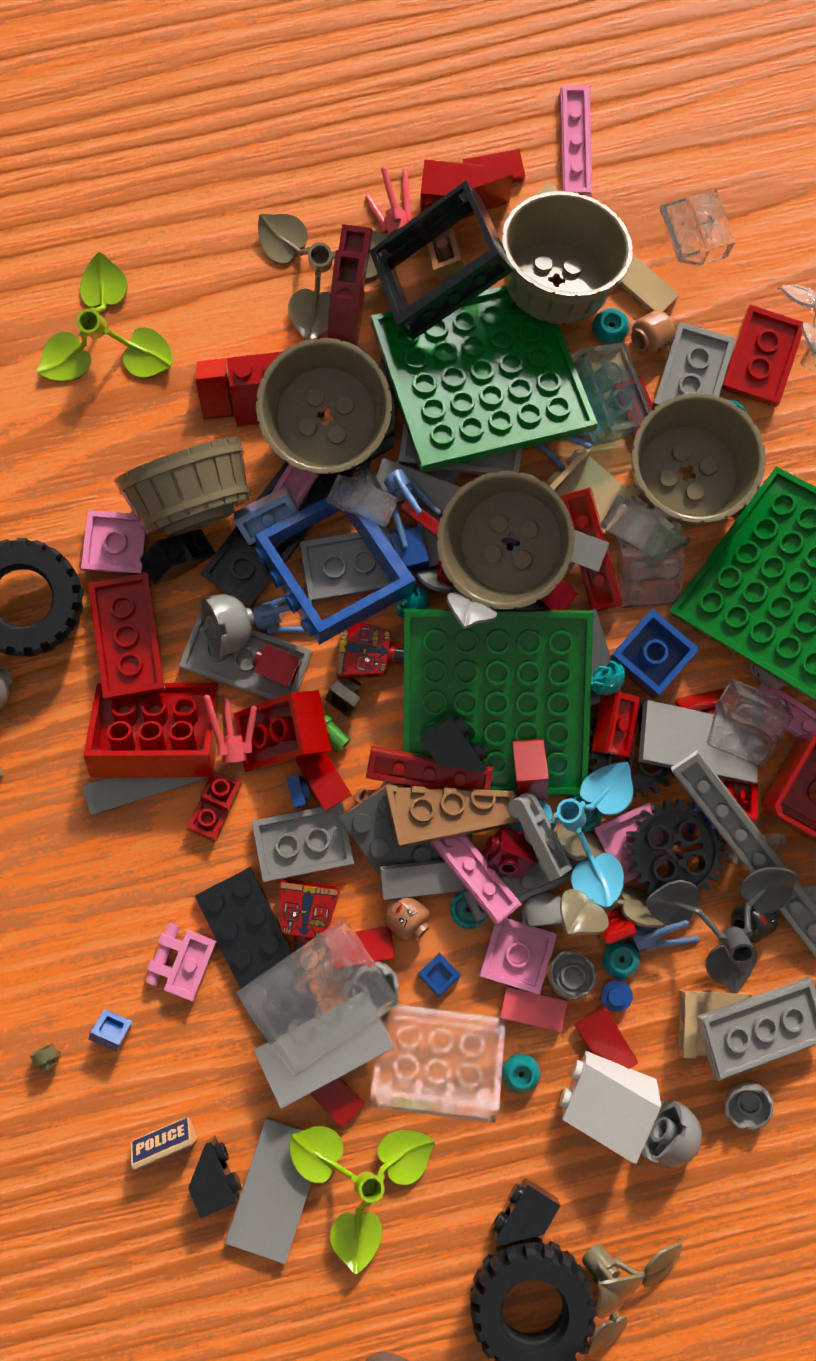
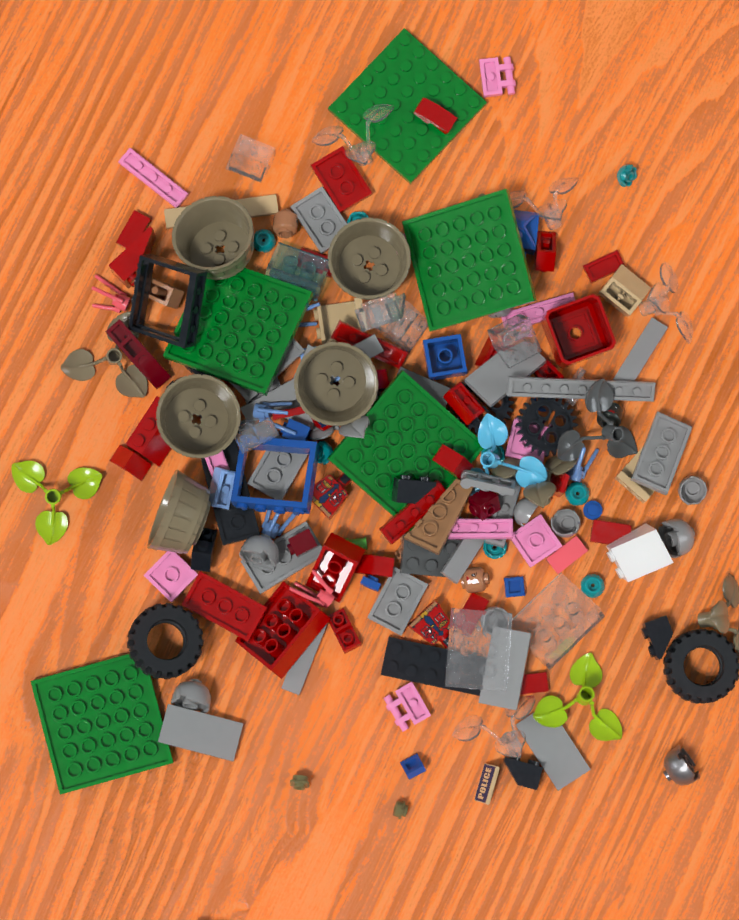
camera: 55 degrees left, 0 degrees up
(230, 1140) = (511, 742): none -> clear plant
(344, 697) = (342, 523): dark brown tile -> none
(608, 678) = (439, 389): teal plate -> none

